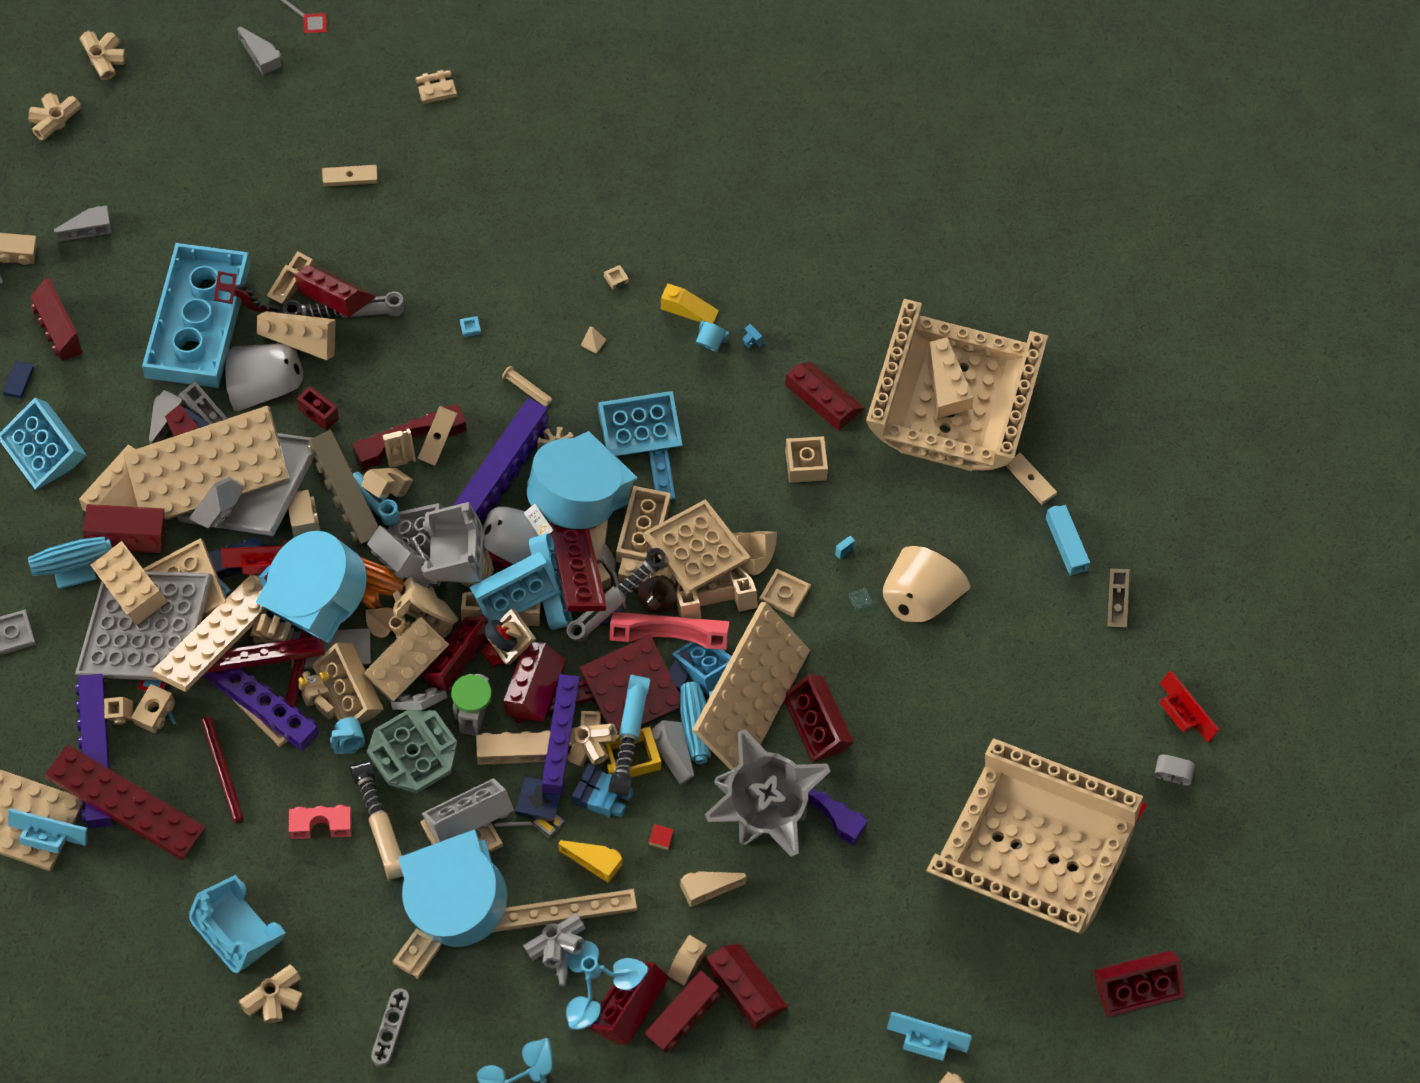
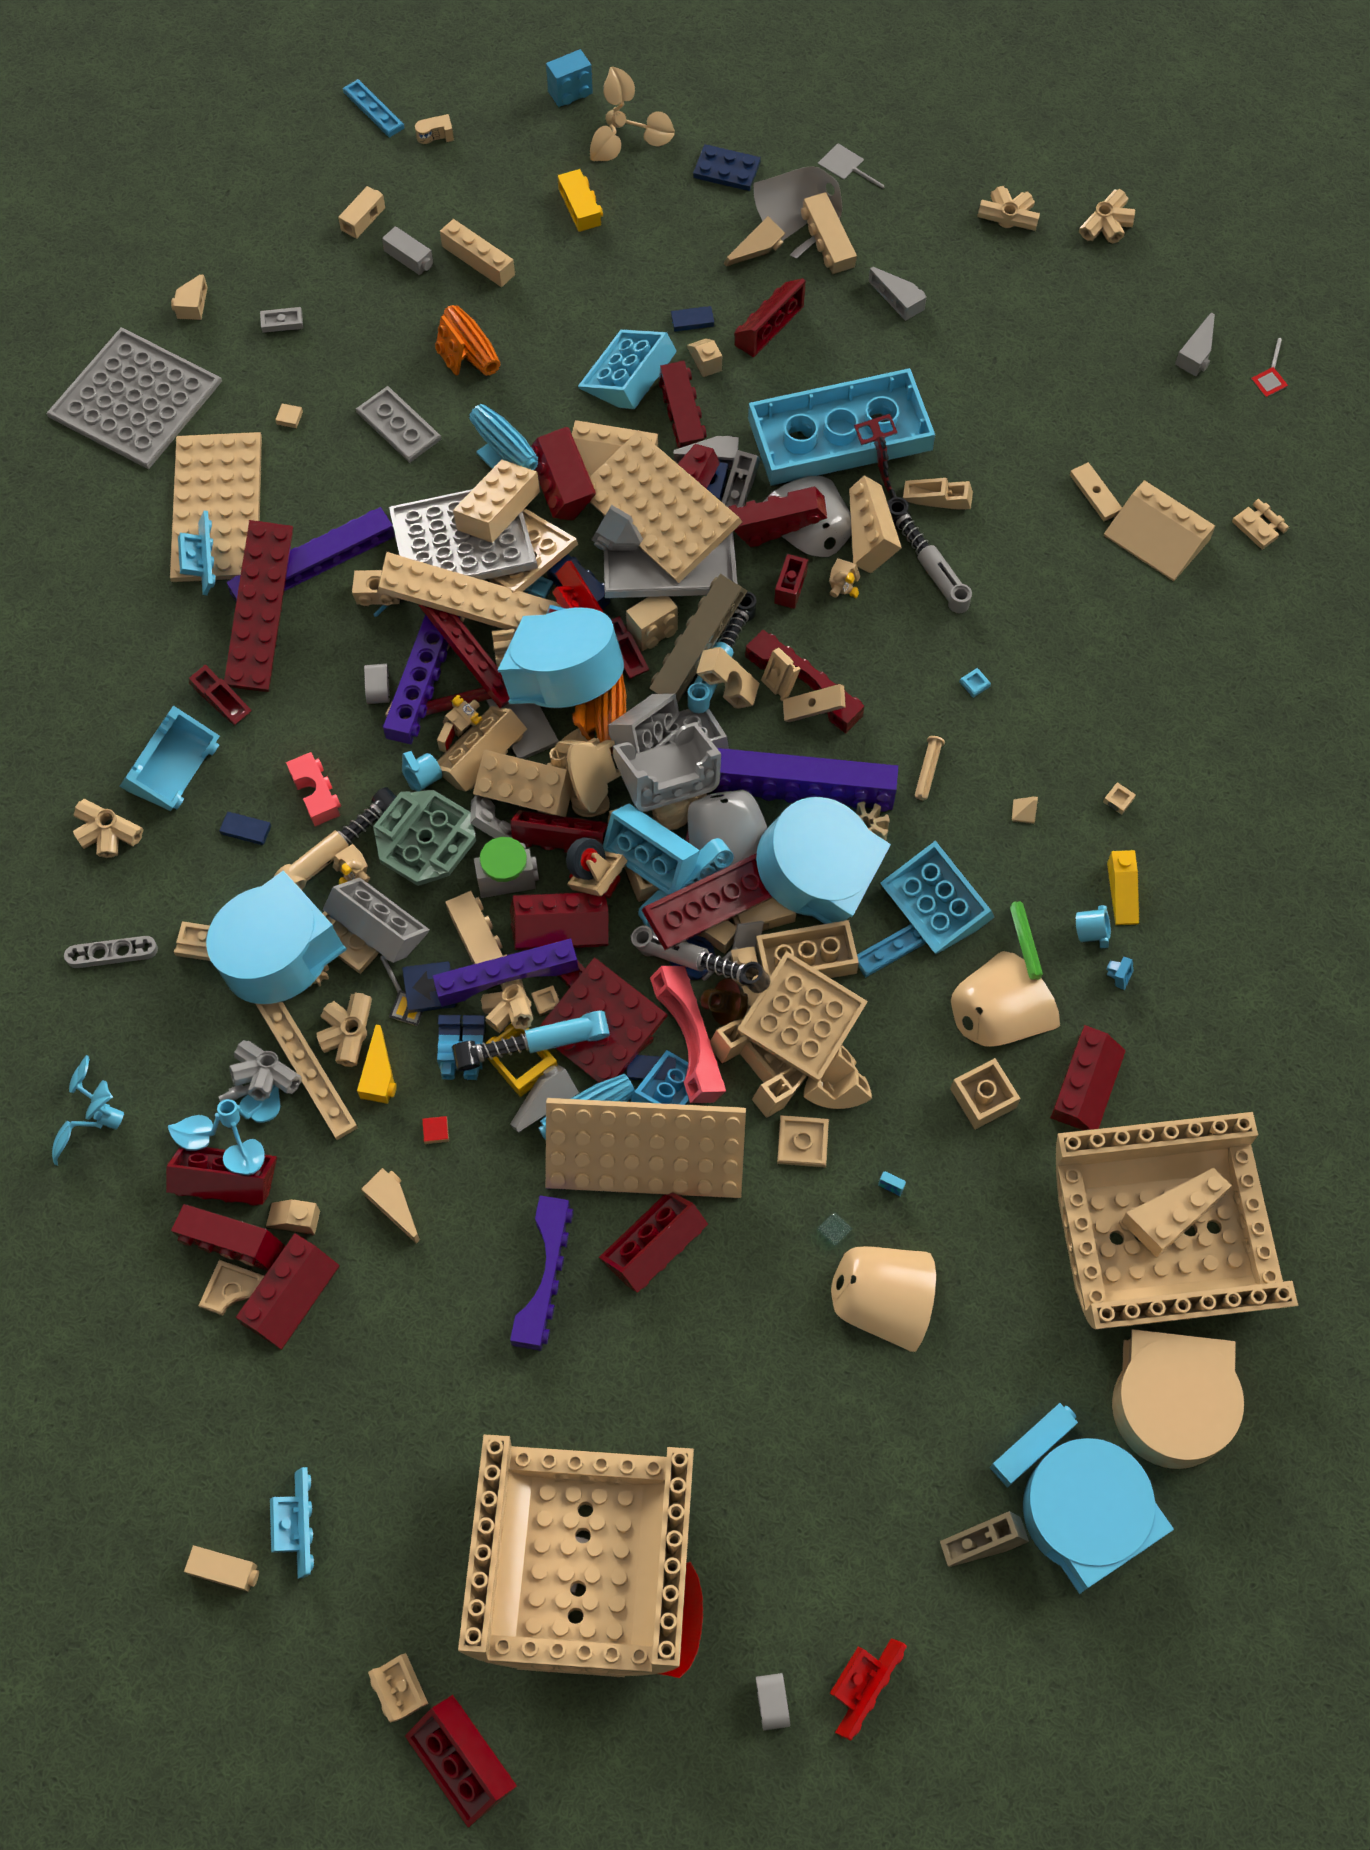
camera: 70 degrees right, 5 degrees up
(63, 383) = (706, 356): none -> tan slope
(106, 418) = (682, 409): none -> dark red wedge
(118, 710) = (360, 556): tan brick -> none
(190, 866) = (219, 695): none -> dark red slope
(222, 769) = (339, 678): dark red axle -> none
(245, 741) = (377, 683): none -> light grey beam
(263, 382) = (779, 515): none -> dark red wedge
(327, 888) = (245, 828): none -> dark blue tile
(331, 372) = (843, 577): none -> tan piece
(332, 290) = (940, 532): dark red slope -> none
(407, 817) = (351, 864): none -> tan piece
(408, 150) = (1159, 530): none -> tan slope
(538, 520) = (750, 840): white sticker -> none
(549, 875) = (342, 1022): none -> tan piece
(700, 383) = (1026, 940): none -> bright green axle
(721, 1027) = (228, 1286): none -> tan tile
(736, 410) = (1010, 1003): none -> tan piece
(784, 797) = (499, 1191): light grey piece -> none
(1038, 485) = (1106, 1355): tan tile -> none
(1073, 439) = (1177, 1397): none -> tan brick
(1074, 1006) = (397, 1688): none -> tan bracket
(1127, 522) = (1091, 1509): none -> medium azure brick

